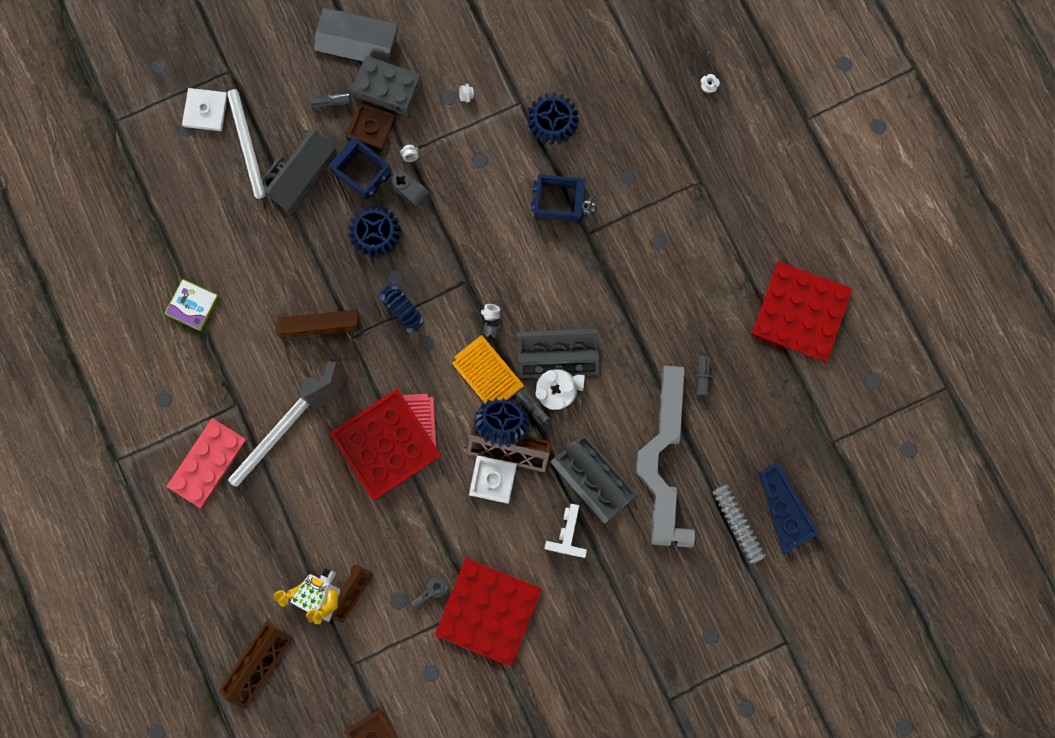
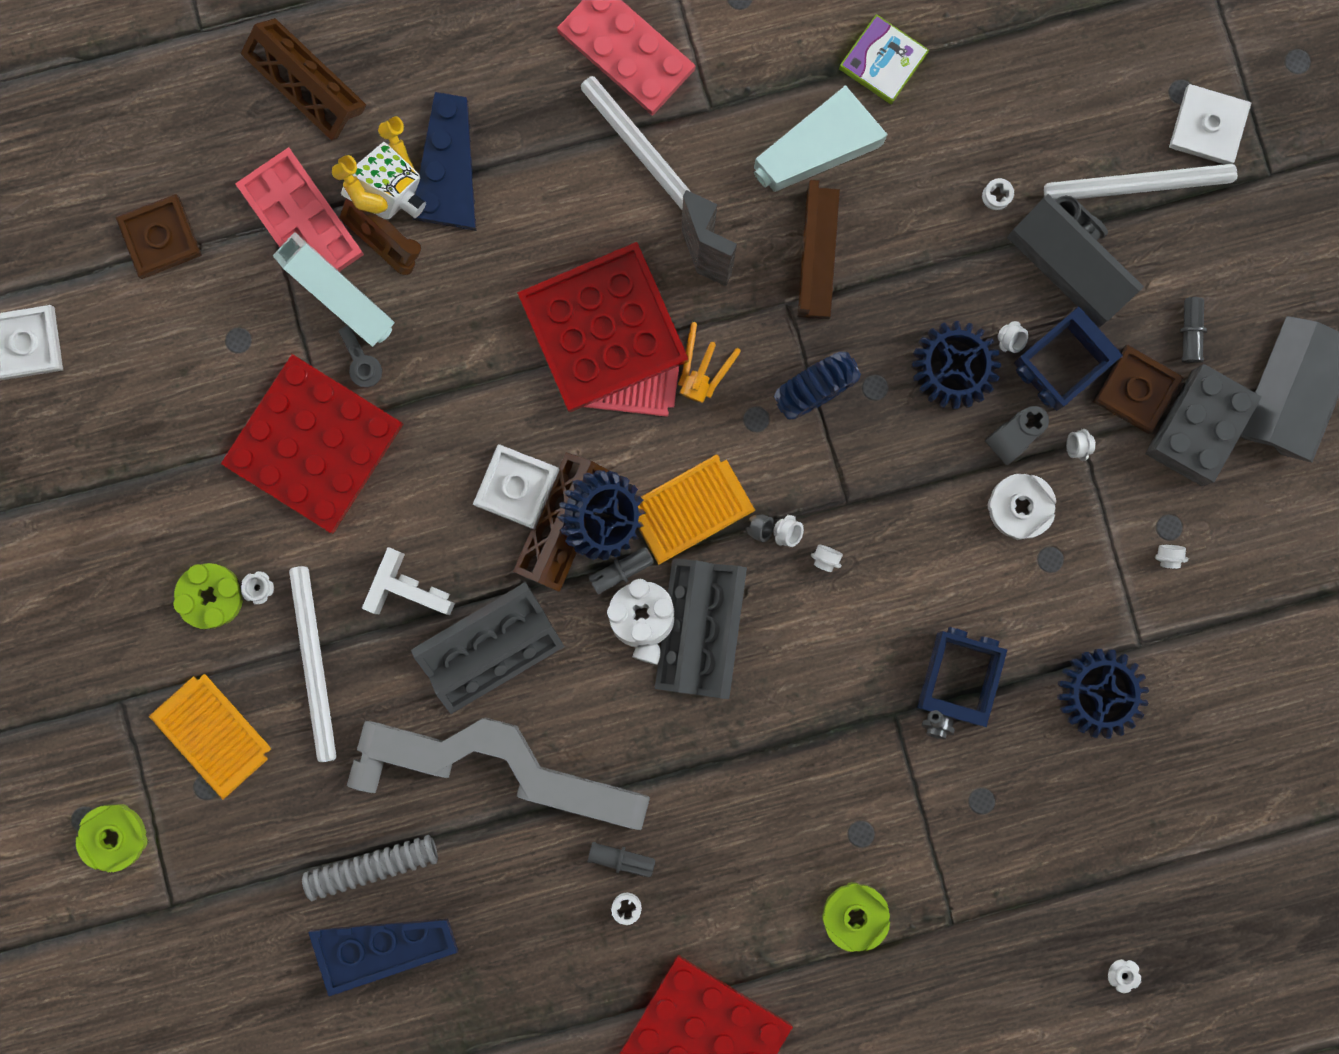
camera: 100 degrees right, 5 degrees up
(247, 330) = (821, 141): none -> light aqua slope
(270, 228) = (1005, 188): none -> white bush
(298, 560) = (447, 165): none -> dark blue wing
(347, 648) = (292, 203): none -> coral plate
(352, 201) = (1012, 337): none -> white plate
(389, 614) = (333, 289): none -> light aqua slope
(411, 381) = (696, 385): none -> light orange plant
(454, 191) = (1040, 509): none -> white plate
(503, 287) = (826, 558): none -> white plate
(583, 633) = (248, 587): none -> white plate
(584, 664) = (190, 603): none -> lime plate
(623, 584) = (312, 664): none -> white axle
(678, 639) = (211, 735): none -> light orange window
(711, 246) = (856, 937): none -> lime plate
(730, 374) = (617, 905): none -> white bush
(741, 688) = (91, 837): none -> lime plate

